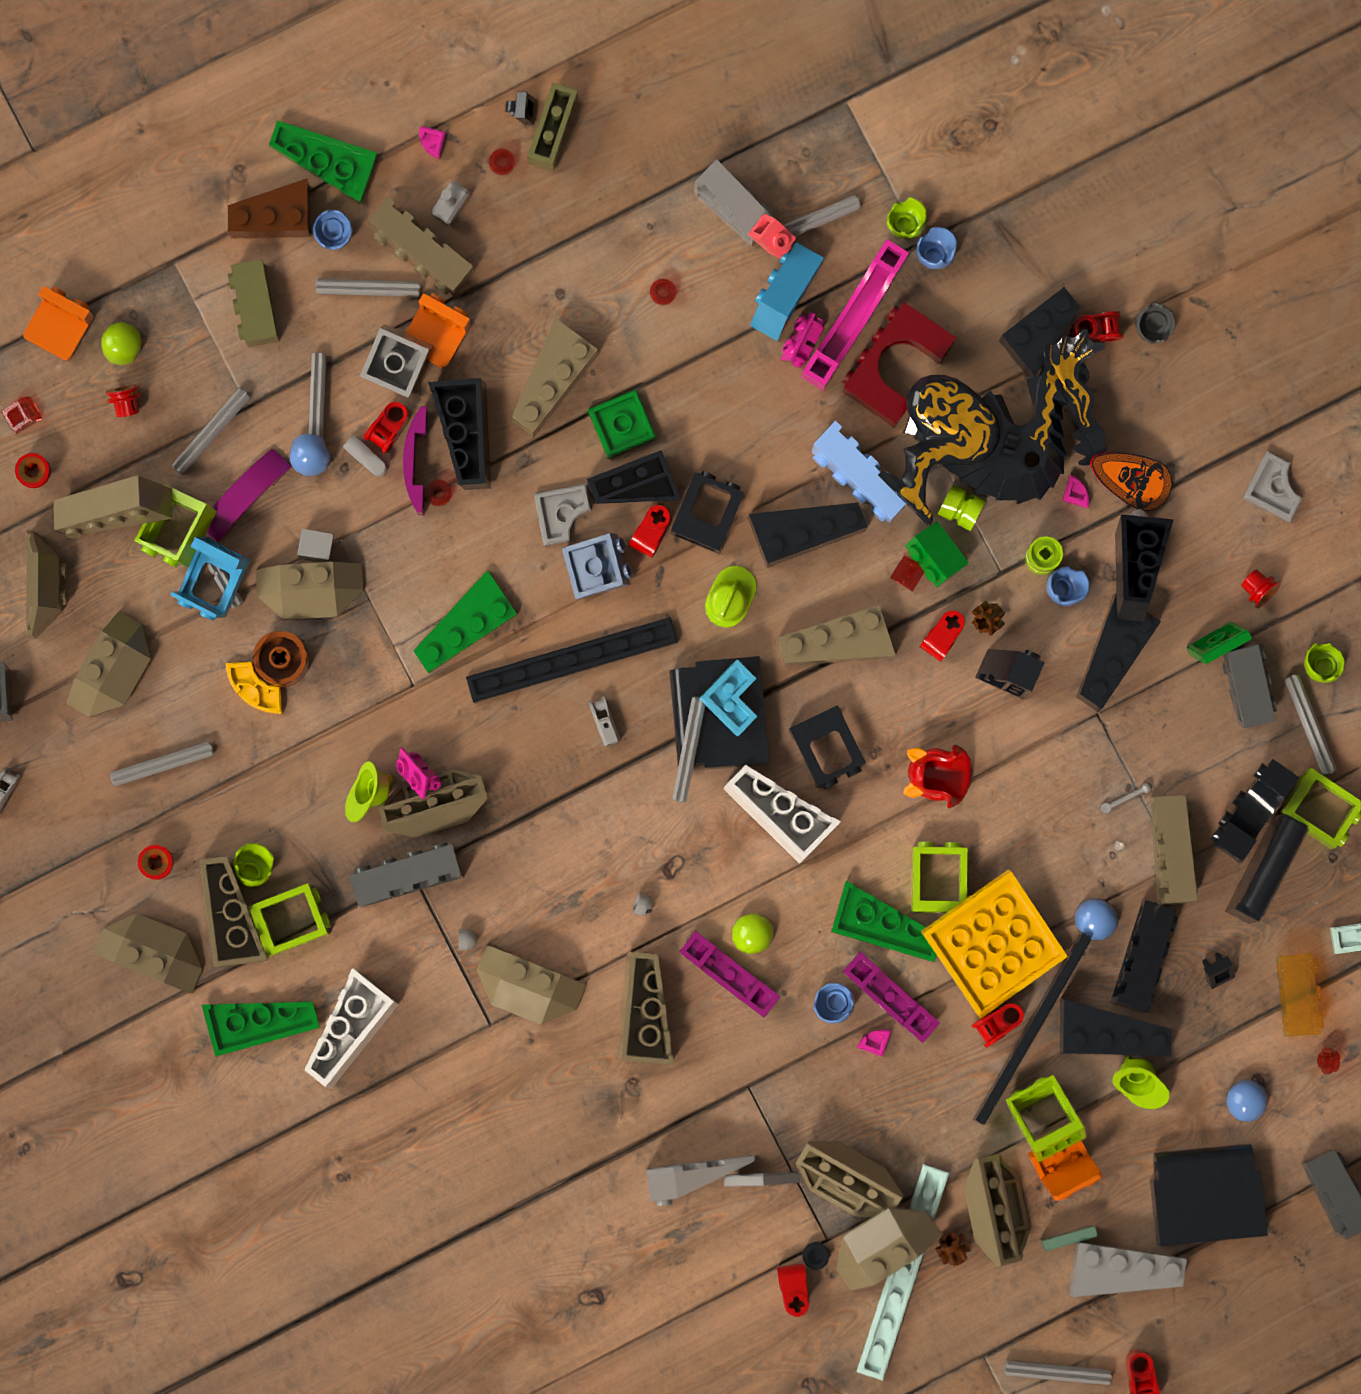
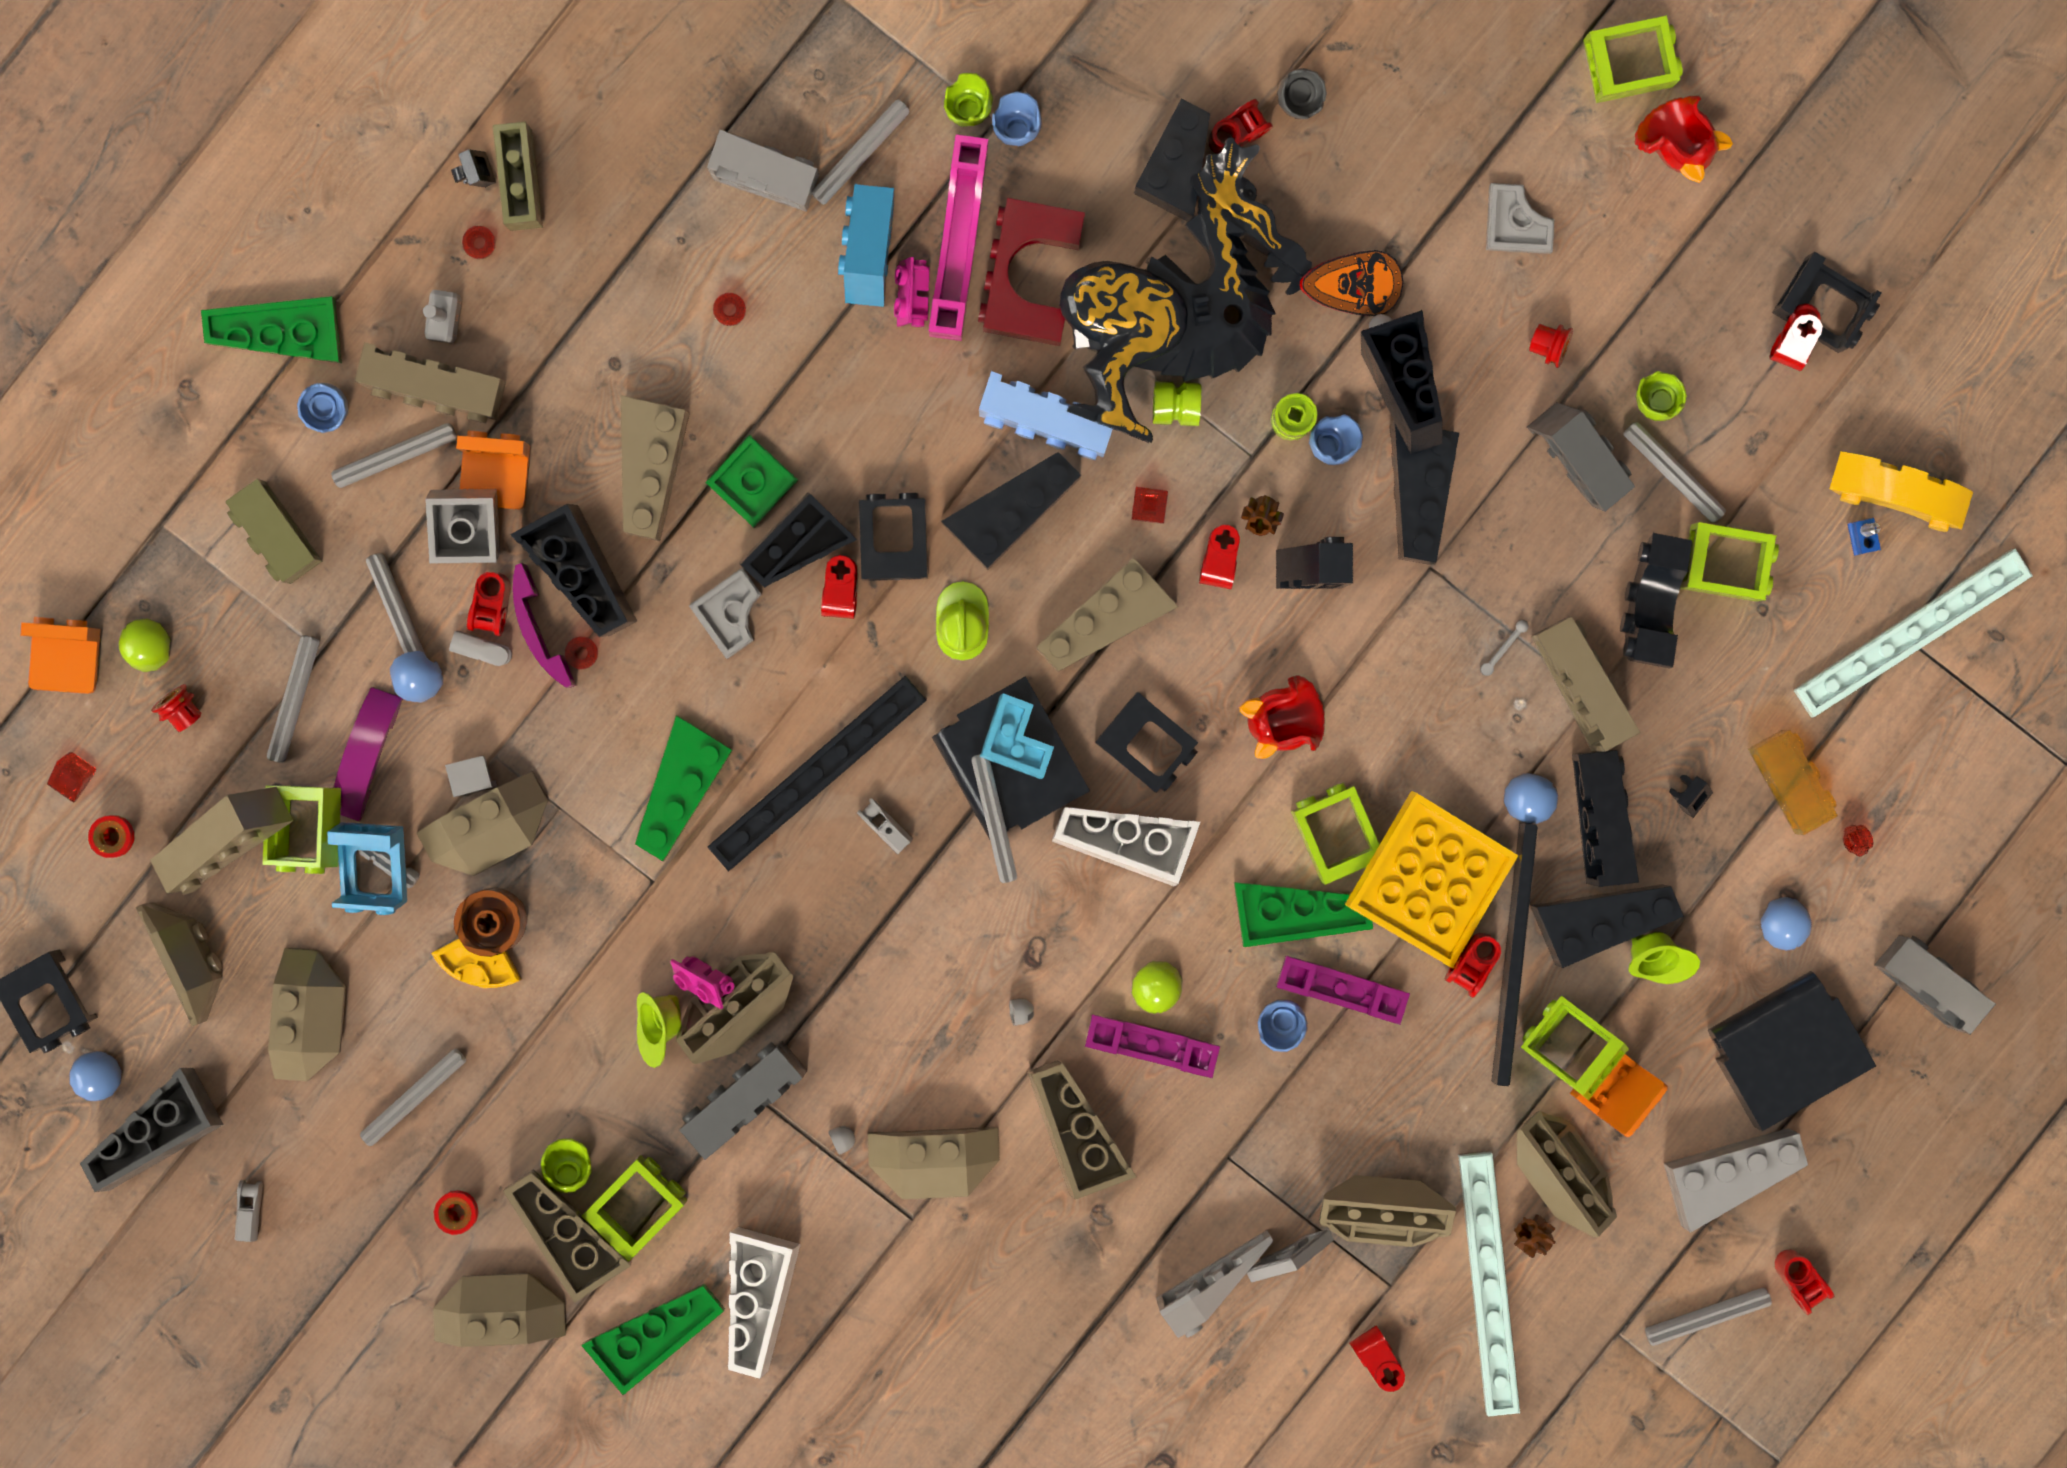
camera: 15 degrees left, 5 degrees up
(273, 213) = (246, 420): reddish brown wedge -> none
(432, 141) = (389, 253): dark pink tile -> none
(597, 565) = (797, 655): sand blue plate -> none
(772, 236) = (824, 190): coral brick -> none
(815, 1255) = (1385, 1309): black tile -> none
(875, 1042) = (1346, 1045): dark pink tile -> none
(884, 1245) = (1460, 1269): dark tan wedge -> none
(936, 554) = (1172, 470): green brick -> none
(1068, 1238) = (1656, 1165): sand green tile -> none
(1076, 493) = (1297, 328): dark pink tile -> none
(1218, 642) = (1534, 427): green tile -> none
(1267, 868) = (1701, 658): black piece -> none

